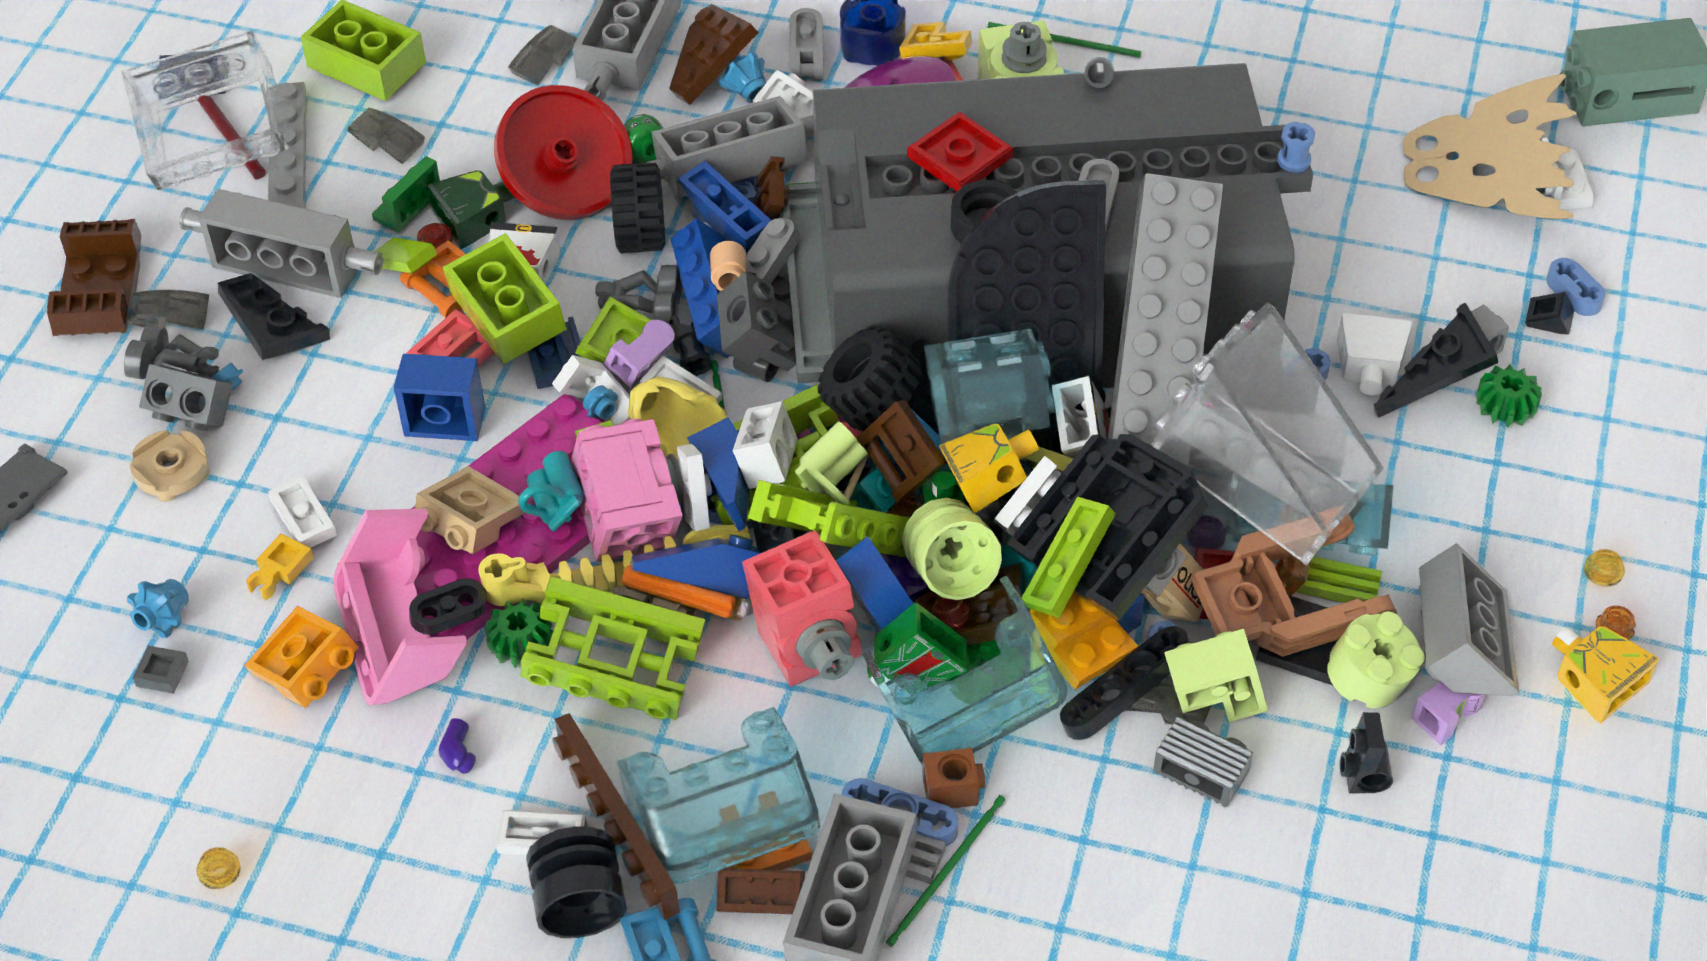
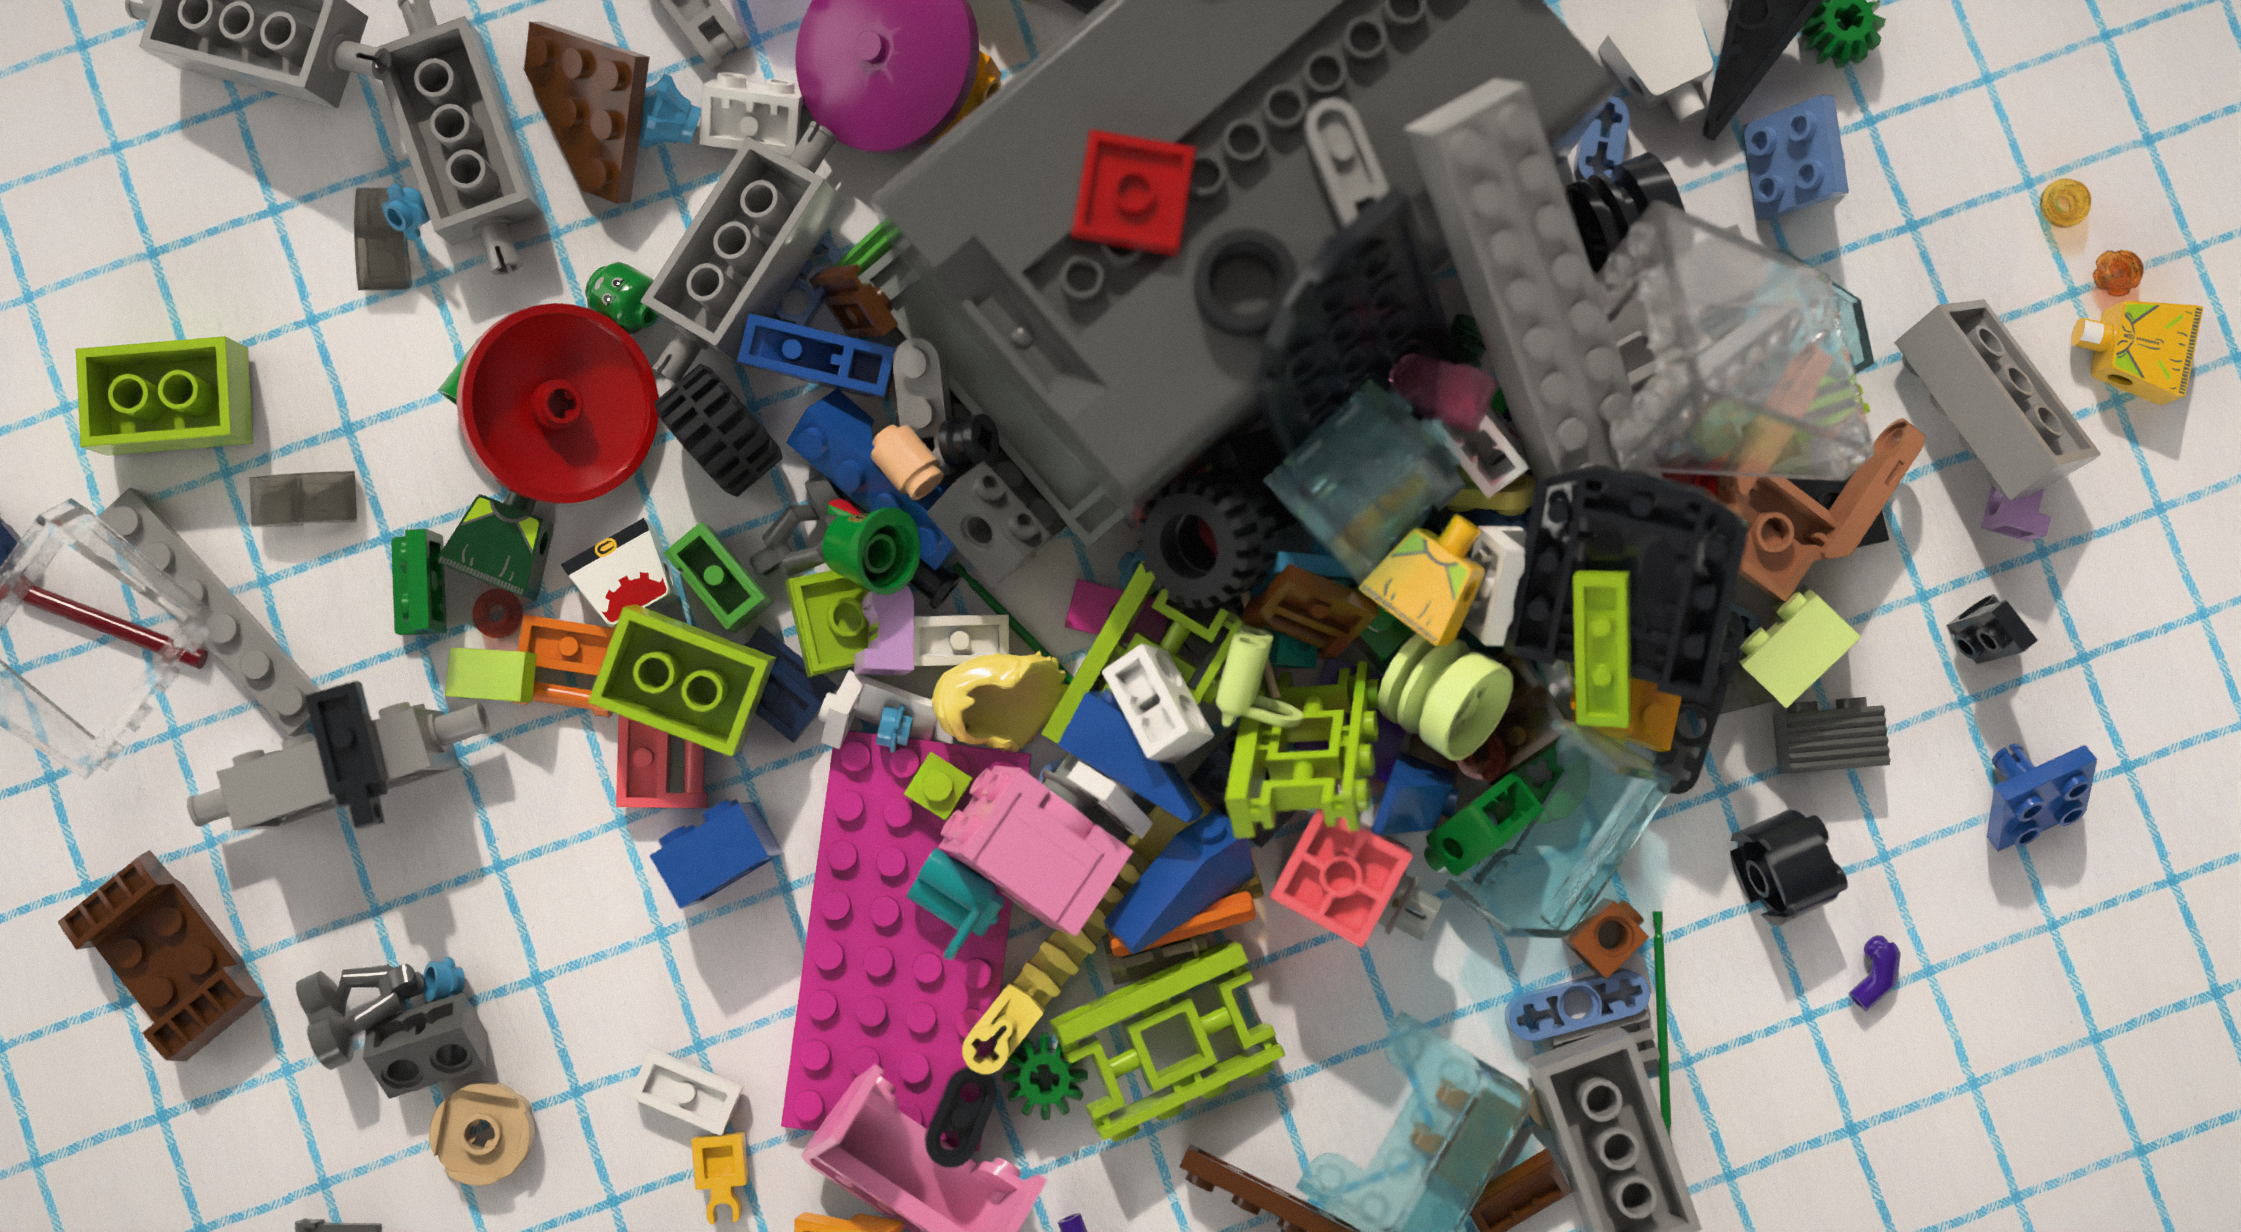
camera: 40 degrees left, 35 degrees up
(170, 306) = (284, 932): clear smoke slope -> none
(266, 319) = (413, 865): black wing -> none
(295, 211) = (349, 751): none -> black hinge
(468, 509) = (879, 982): tan plate -> none
(565, 37) = (405, 210): none -> dark azure plate
(572, 277) = (718, 577): none -> bright green brick
(672, 292) = (872, 548): none -> green hat
(779, 275) = (968, 440): none -> black wheel
(1073, 359) = (1444, 390): none -> clear pink piece
(1110, 802) = (1787, 865): none -> black brick
(1133, 927) = (1883, 974): none -> dark purple arm
(1328, 871) = (2038, 796): none -> blue plate
(1375, 659) = (1935, 505): yellowish green brick -> none
(1422, 435) = (1795, 157): none -> medium blue plate

